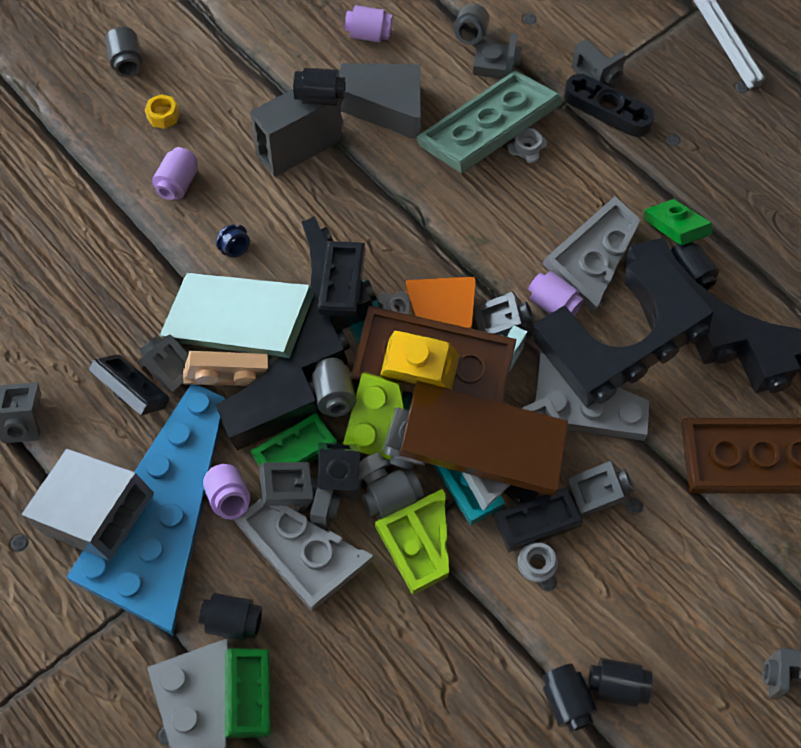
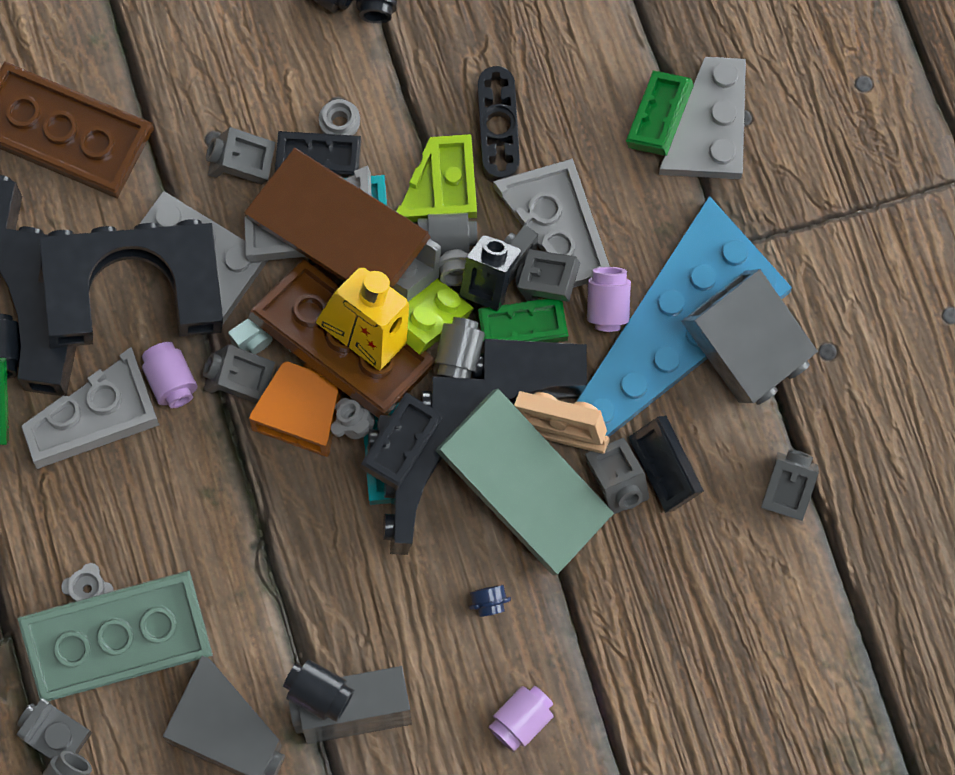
camera: 155 degrees left, 10 degrees up
(230, 617) = (649, 183): black brick -> none
(418, 641) = (508, 97): none -> black beam

